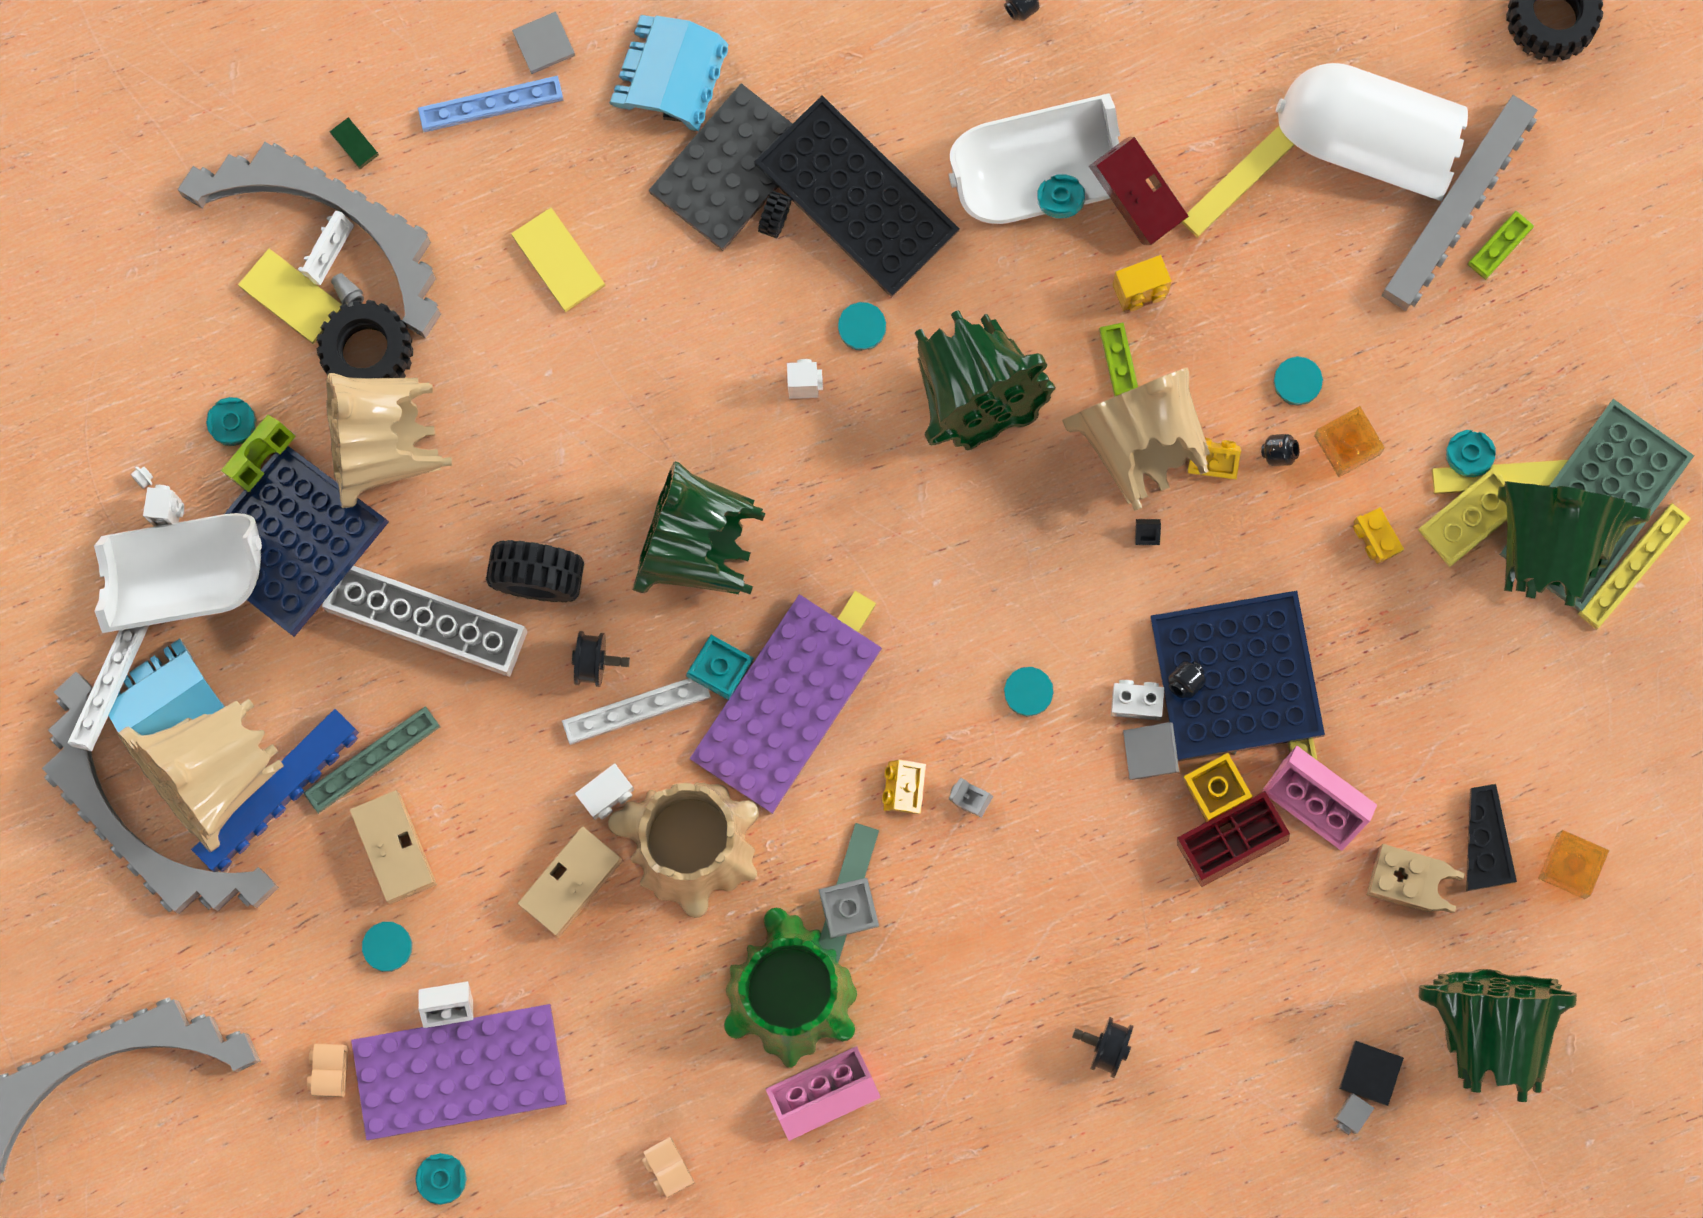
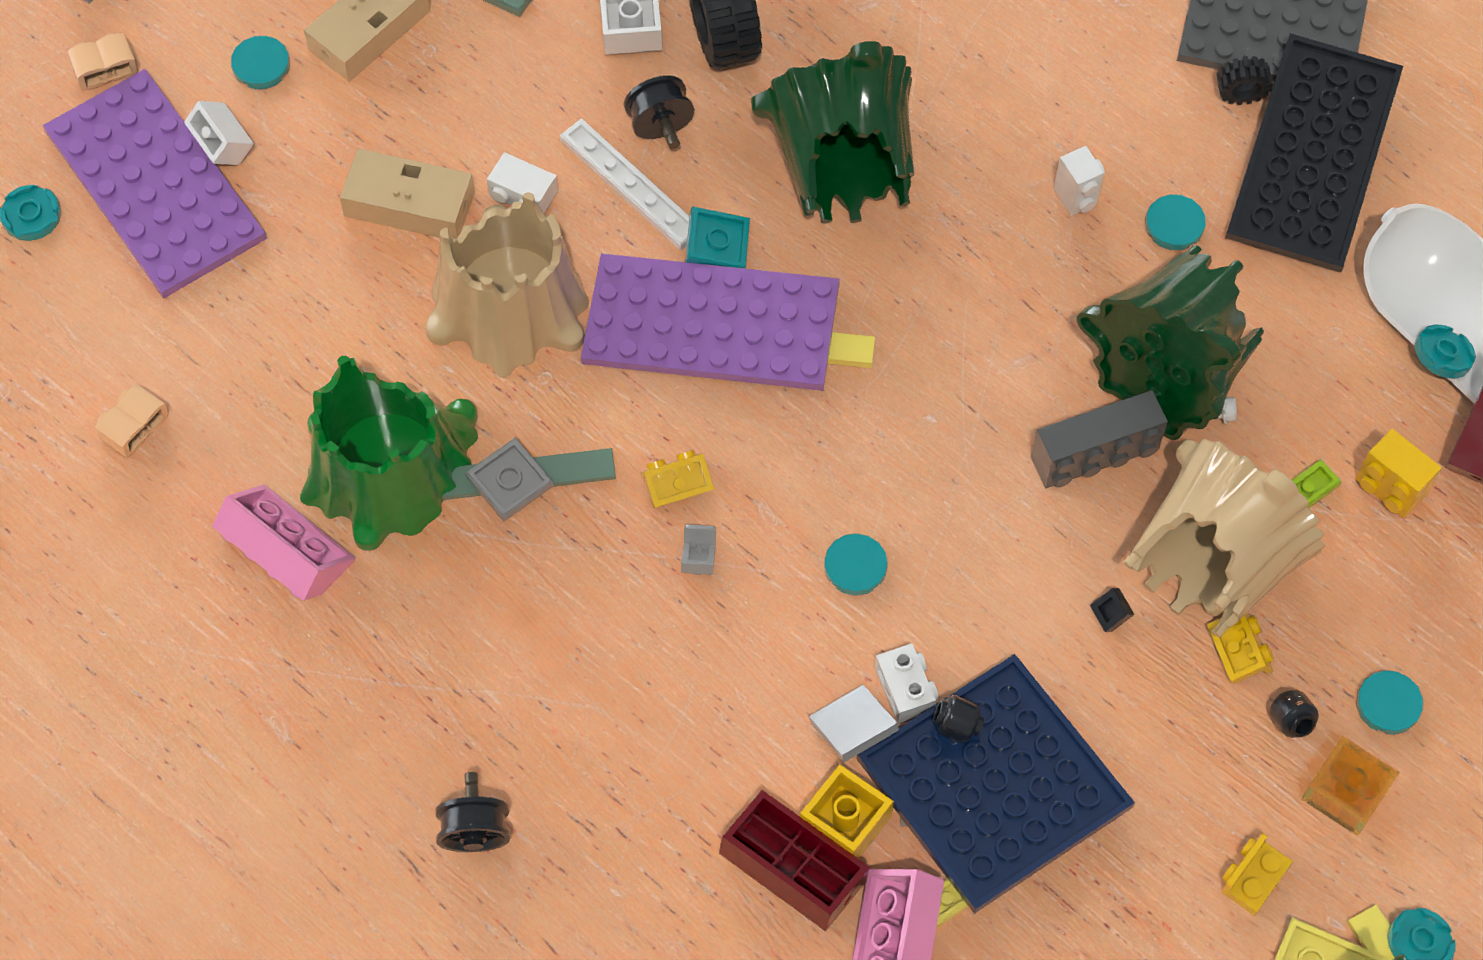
camera: 60 degrees right, 15 degrees down
(1019, 473) = (1098, 440): none -> dark grey brick

